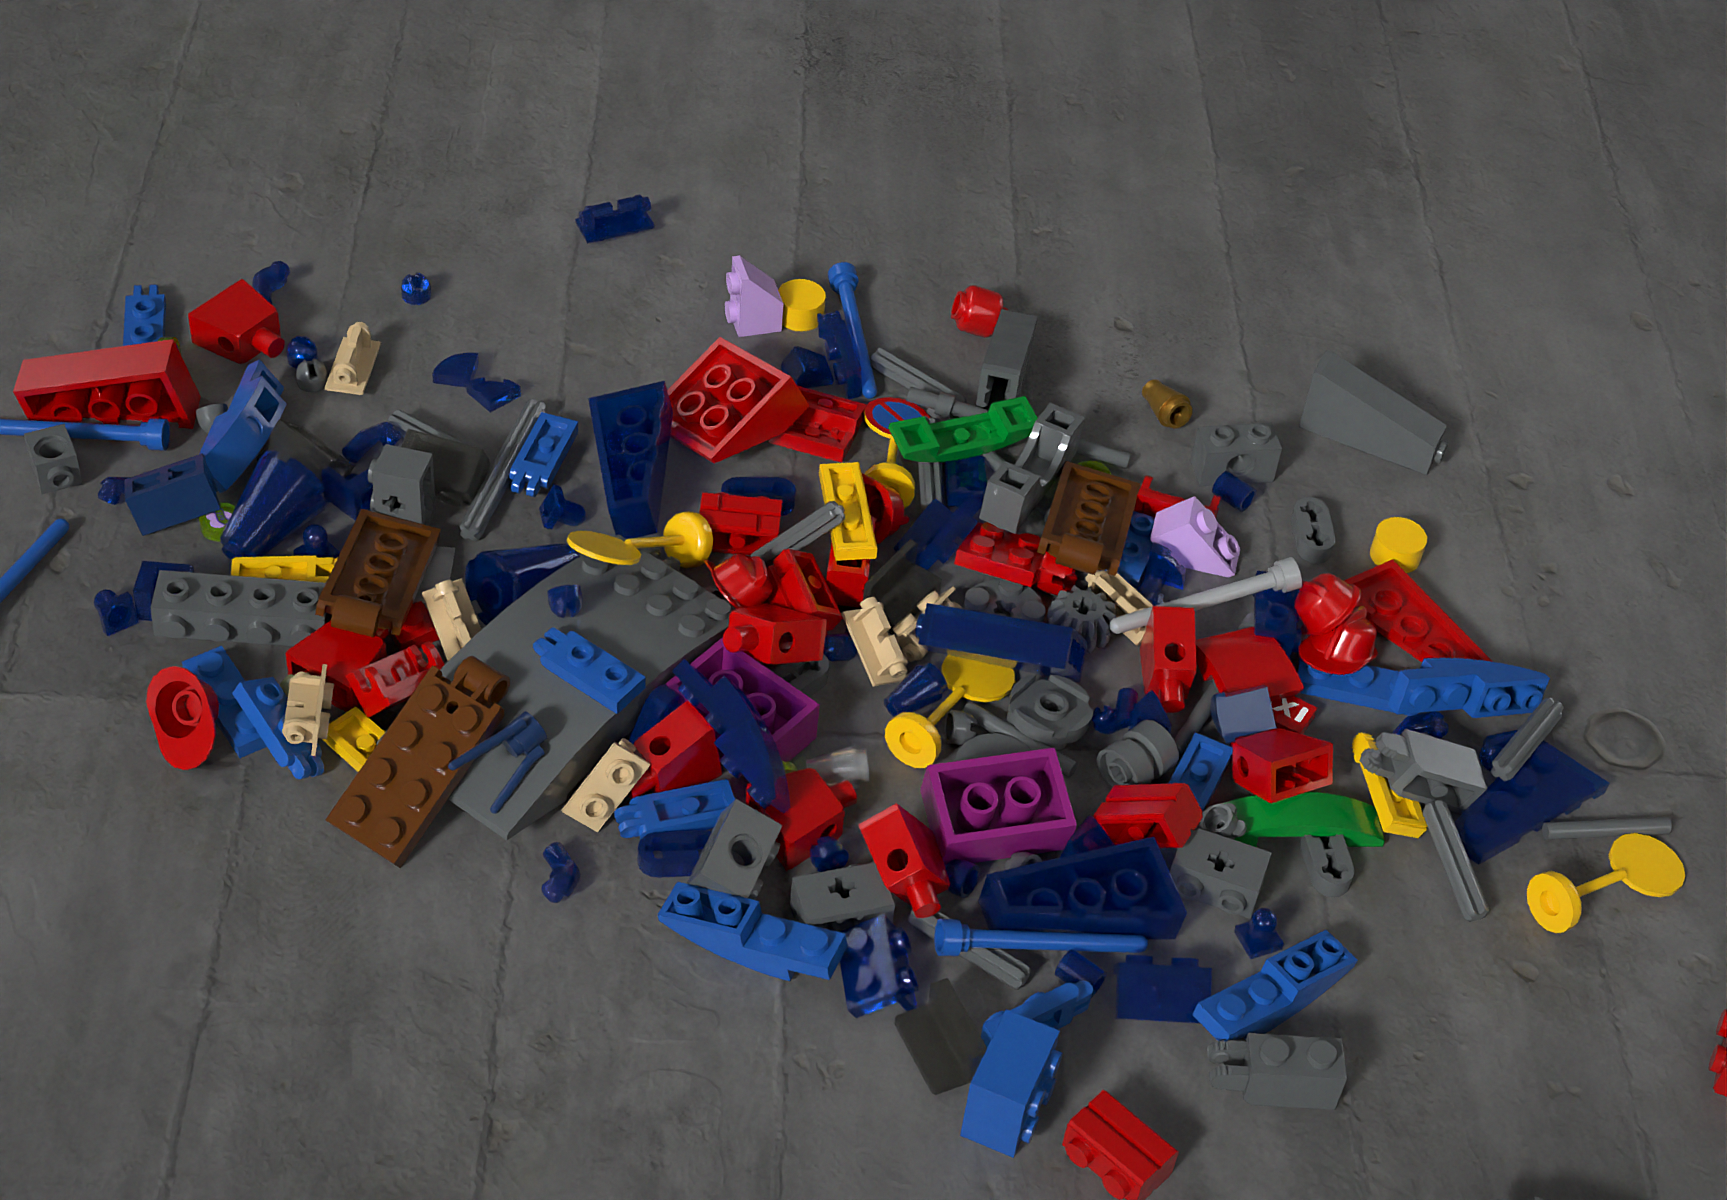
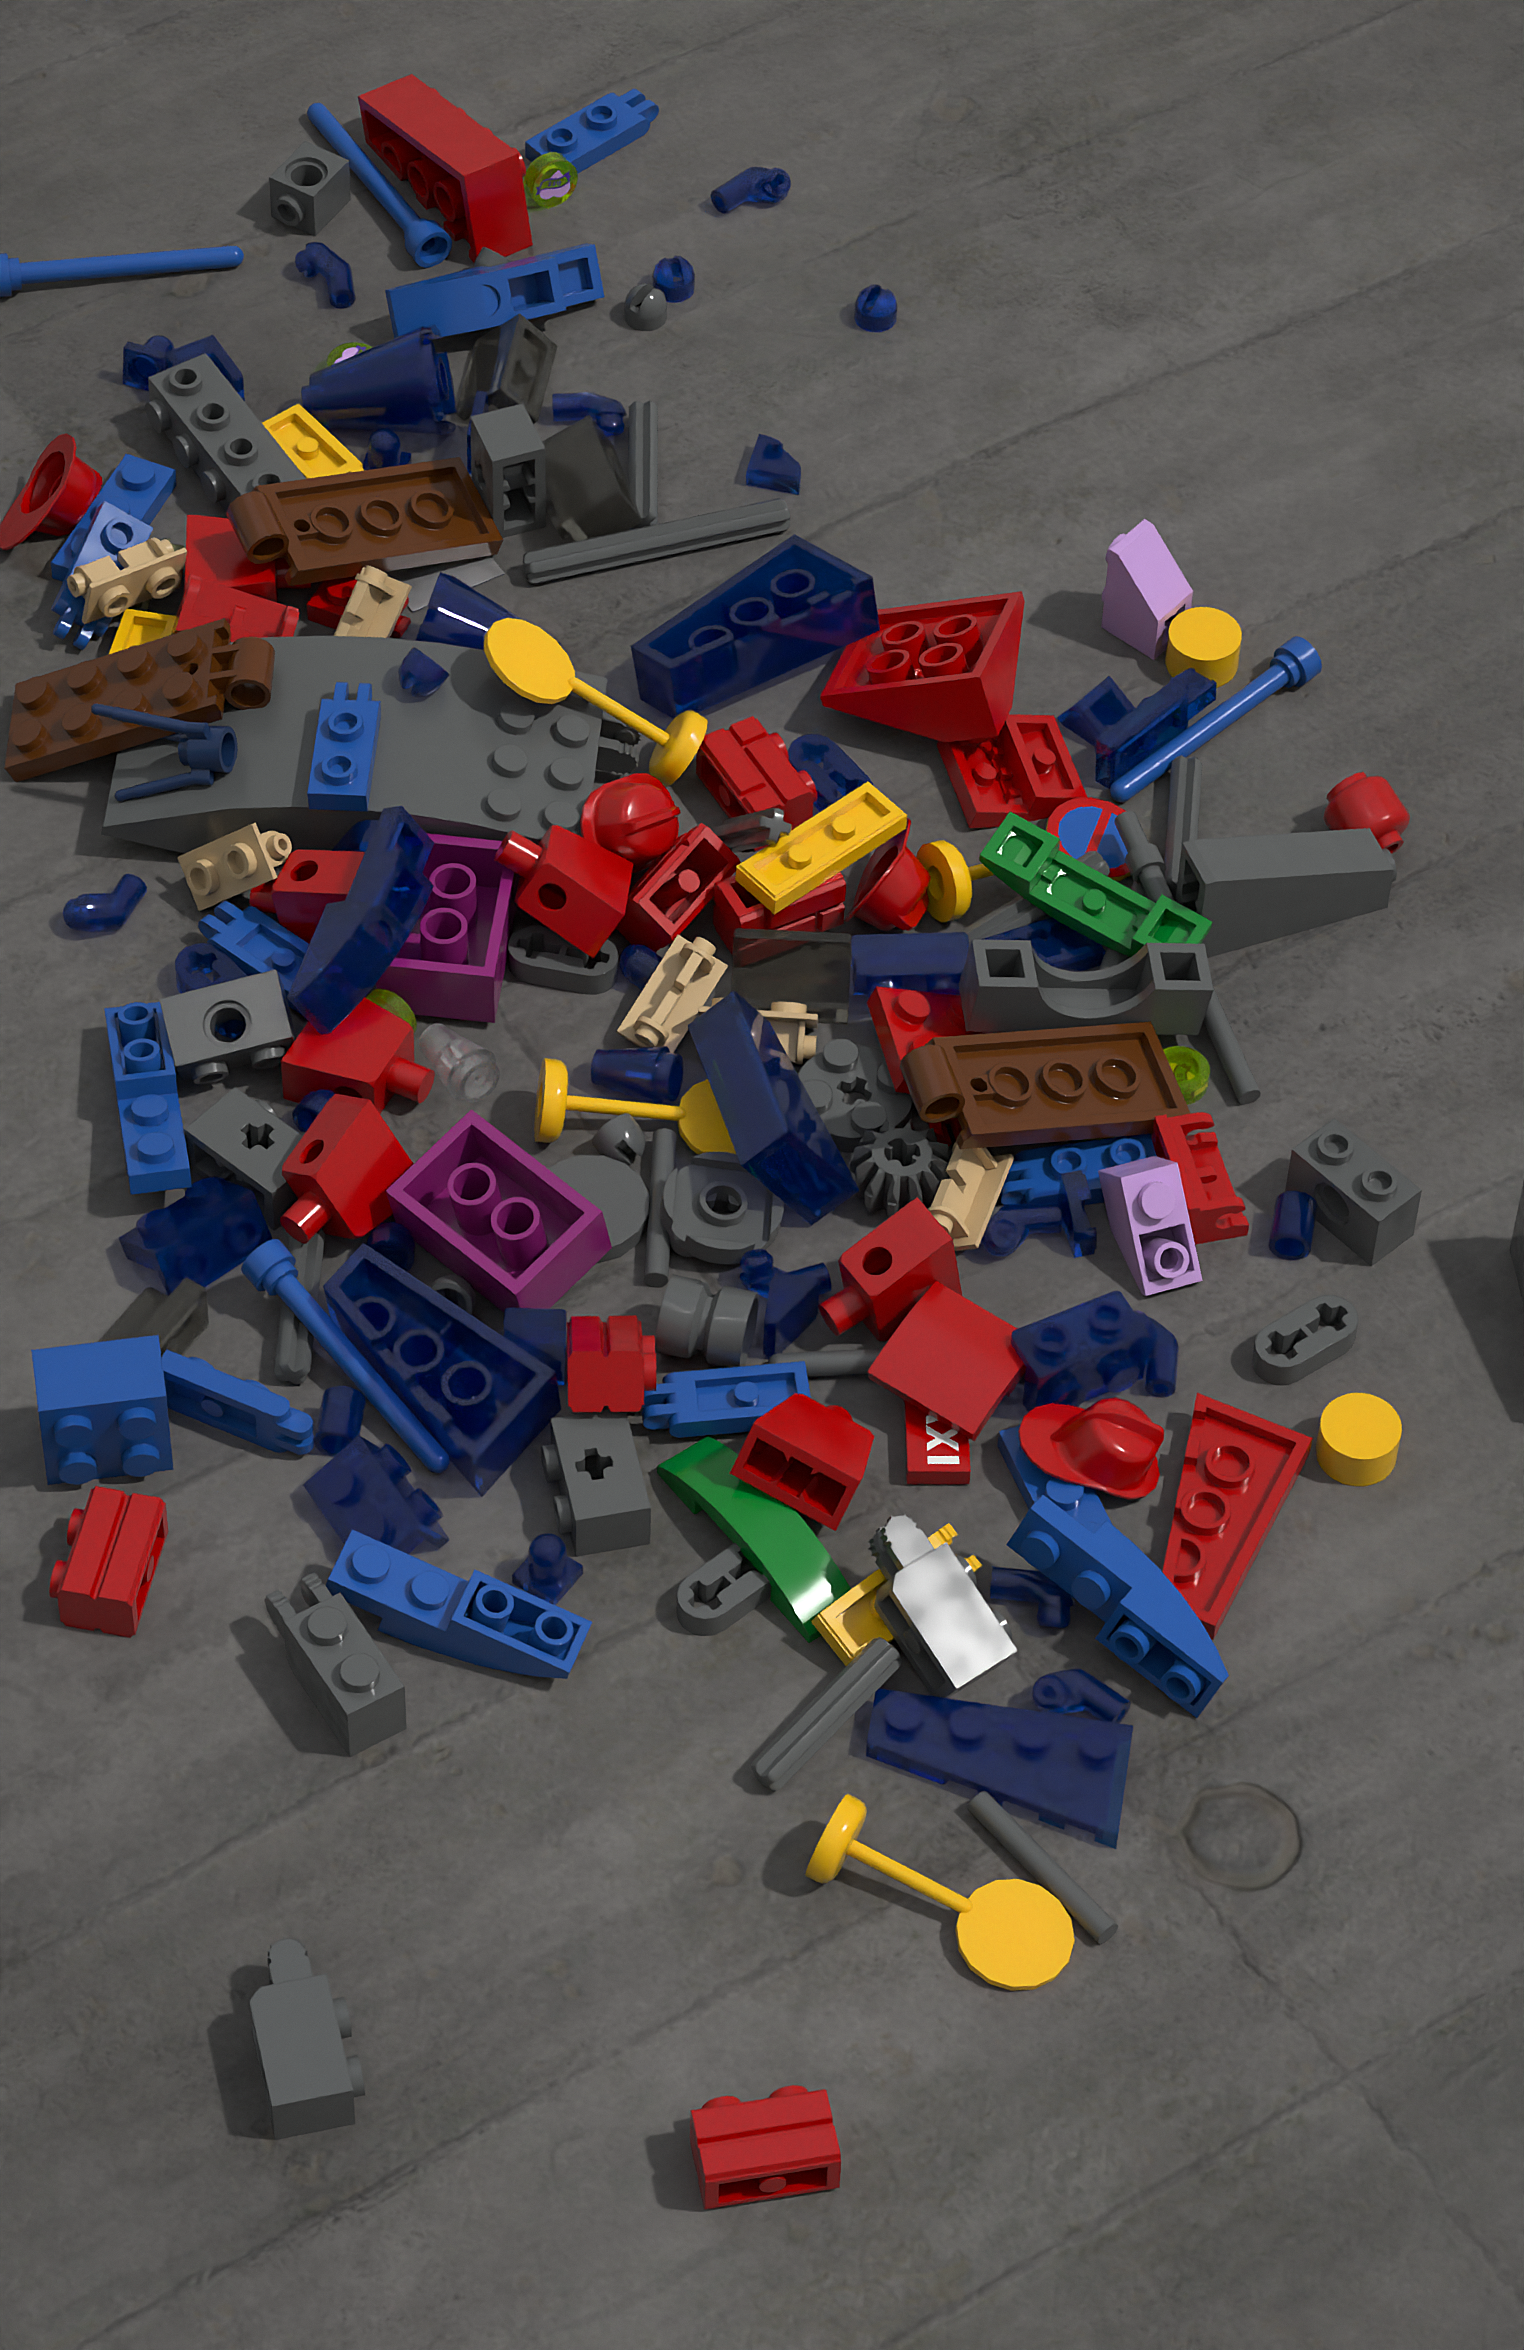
camera: 60 degrees right, 5 degrees up
(171, 494) = (335, 301): dark blue hinge -> none
(237, 324) = (655, 201): red torso -> none
(353, 361) = (687, 330): tan hinge -> none
(456, 369) = (778, 416): clear blue tile -> none
(542, 453) = (698, 558): blue hinge -> none
(558, 509) = (632, 618): clear blue piece -> none
(603, 222) = (1184, 410): clear blue hinge -> none
(1168, 405) = (1387, 1087): pearl gold cone -> none
(1223, 821) = (670, 1447): dark grey plate -> none
(1242, 712) = (859, 1383): dark blue tile -> none
(1282, 576) = (1104, 1308): light grey piece -> none
(1325, 603) = (1121, 1371): red piece -> none
(1527, 739) = (1096, 1704): dark grey axle -> none

